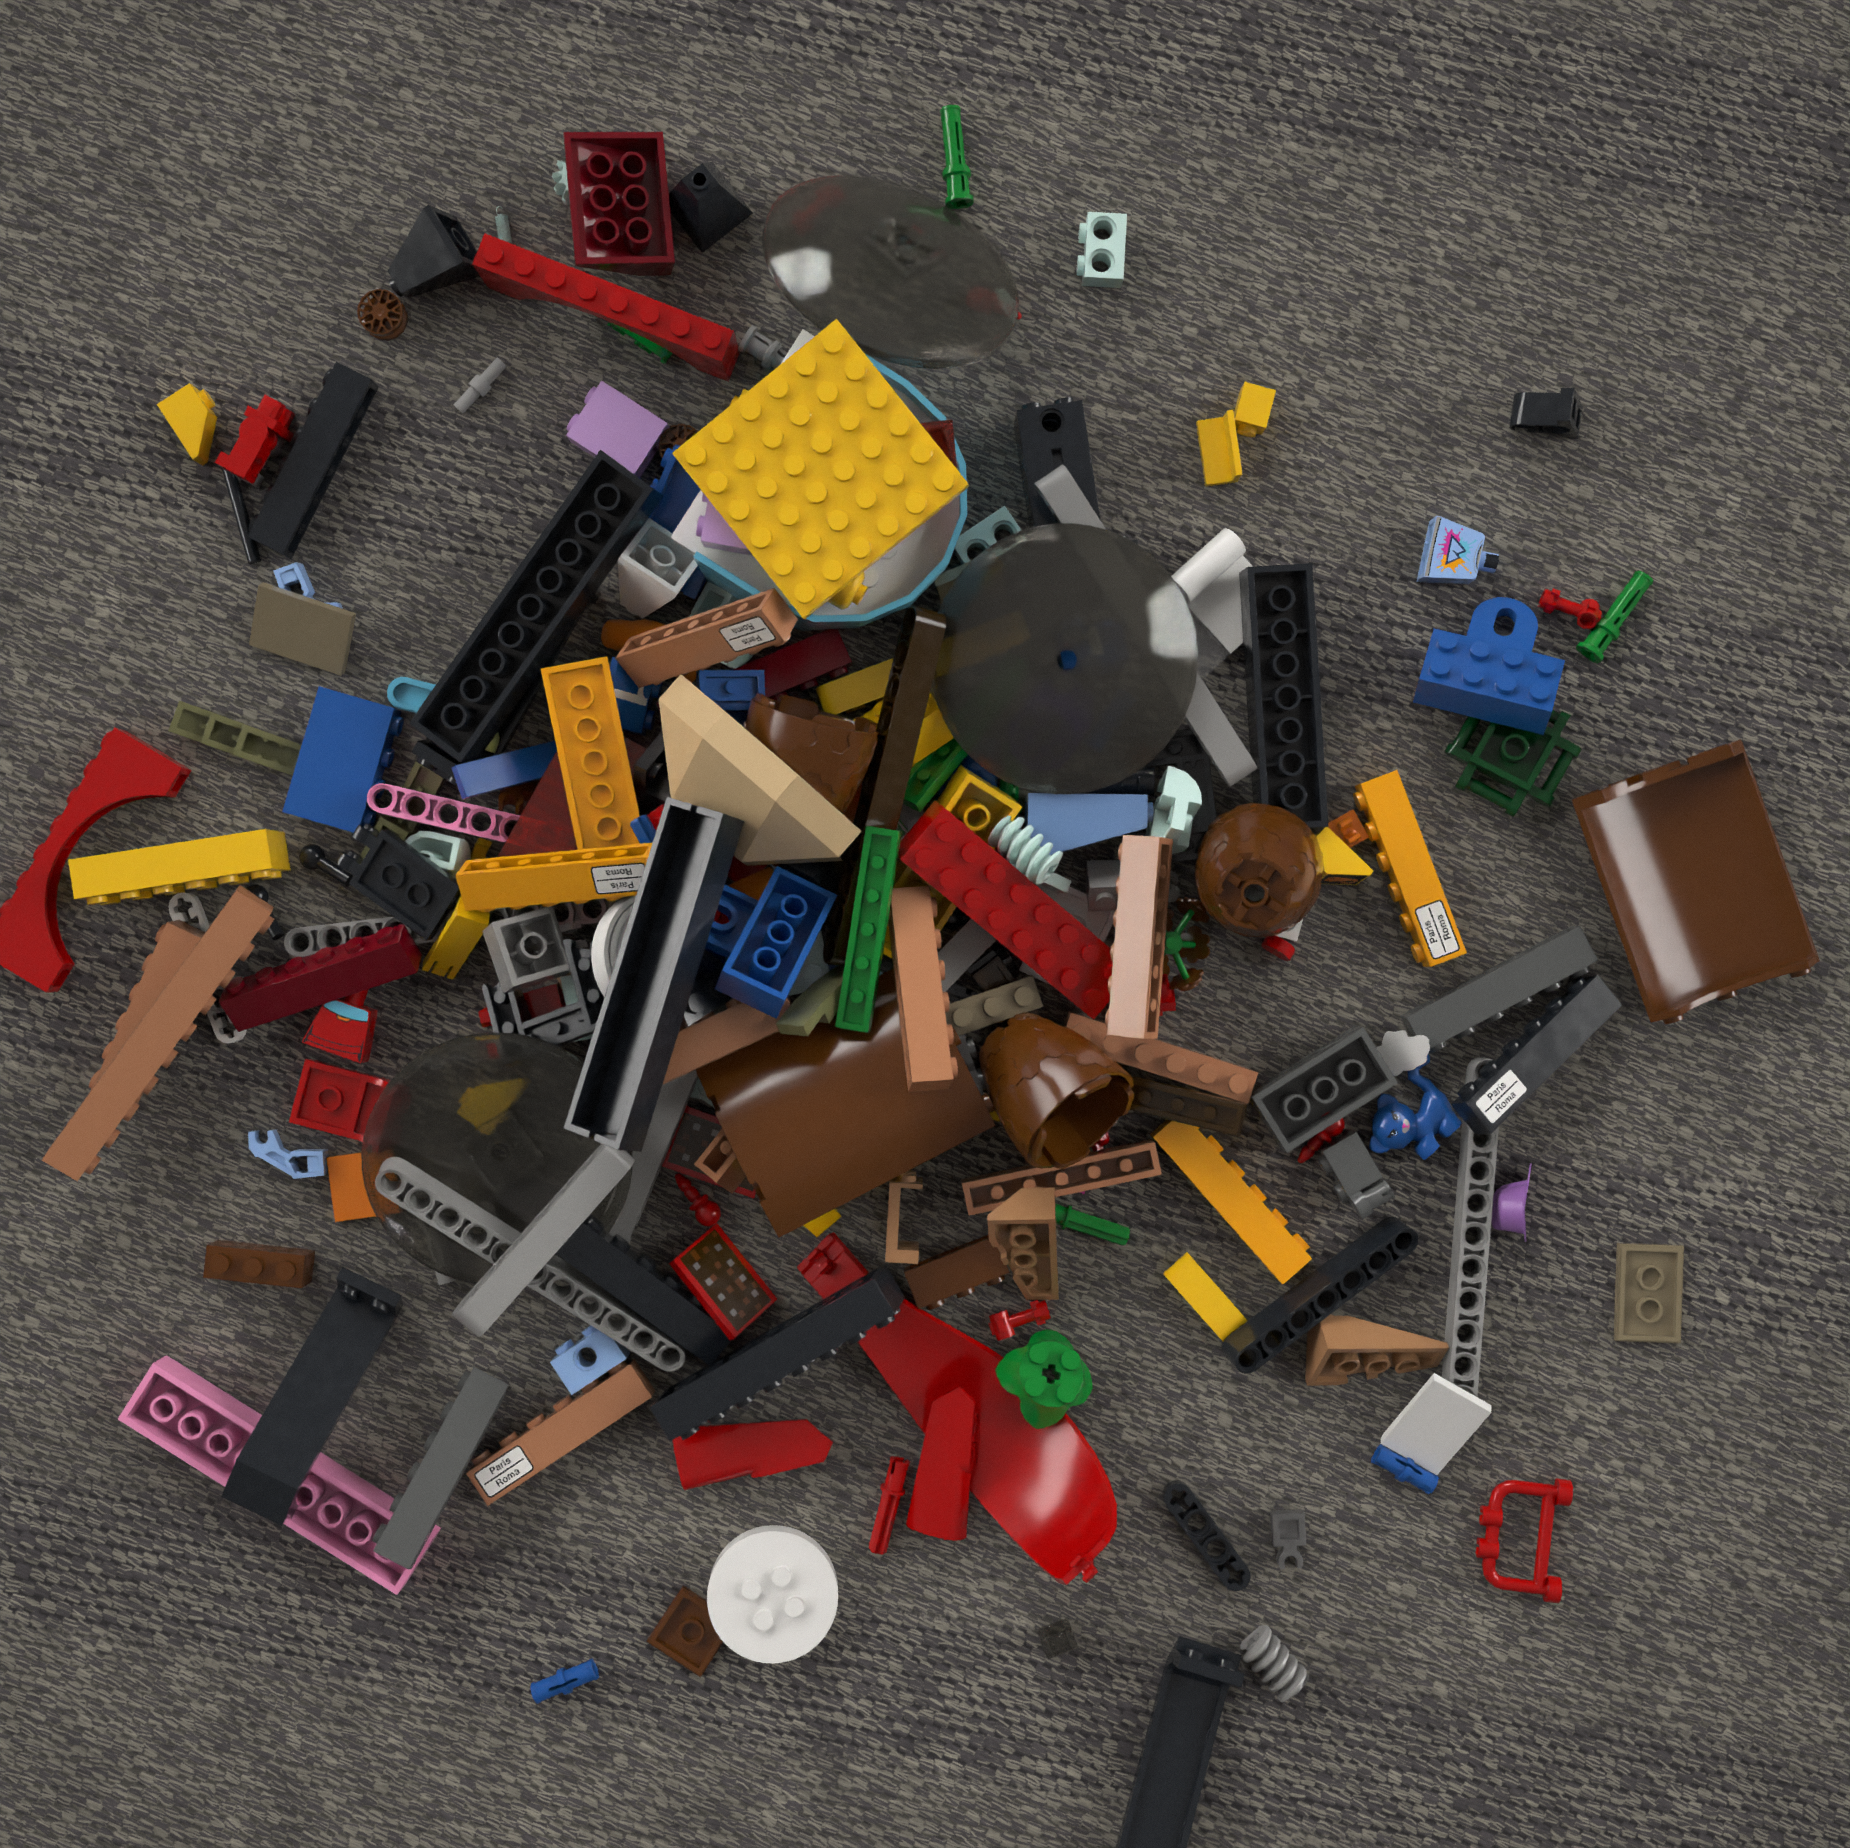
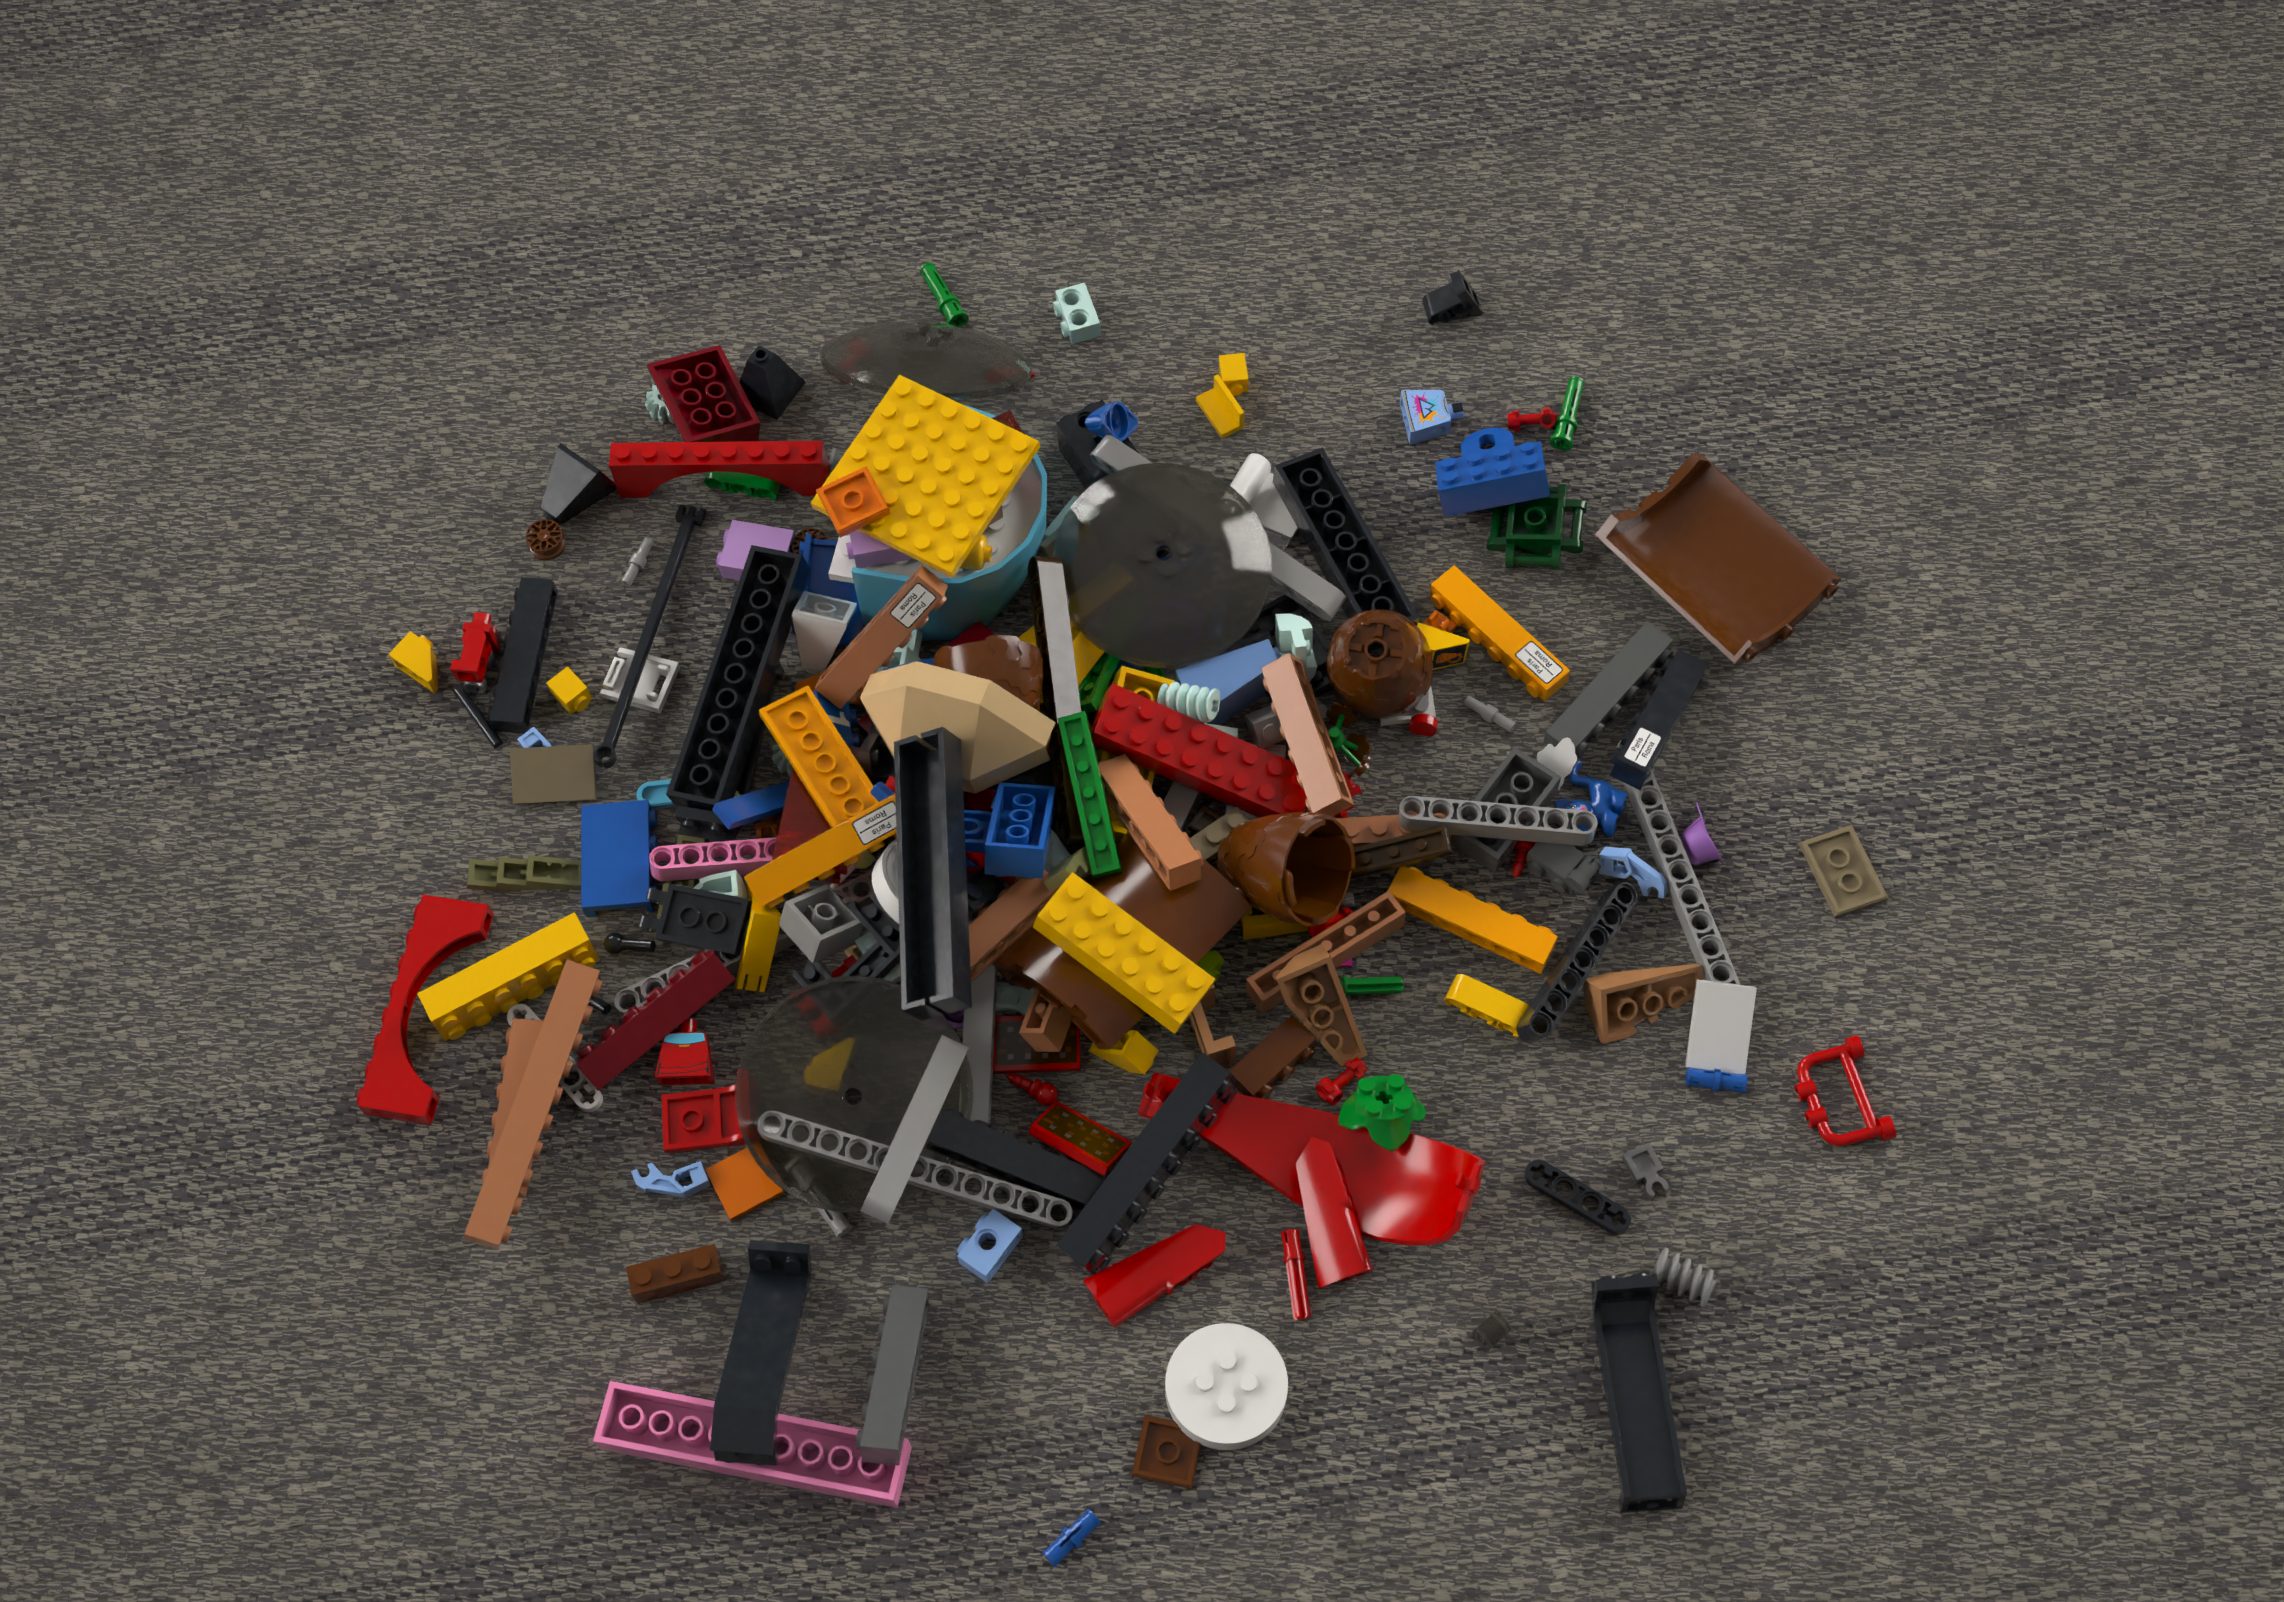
camera: 10 degrees left, 25 degrees down
(351, 529) = (569, 691): none -> yellow brick
(432, 539) = (644, 695): none -> white container
(464, 486) = (687, 521): none -> black hinge
(560, 1431) = (987, 1317): nougat brick -> none
(719, 478) = (853, 501): none -> orange tile
(828, 1150) = (1123, 952): none -> yellow brick
(1078, 446) = (1112, 420): none -> blue hat
(1319, 1121) = (1510, 815): none -> light grey beam
(1357, 960) = (1490, 713): none -> light grey bar
(1420, 1201) = (1634, 866): none -> light blue piece

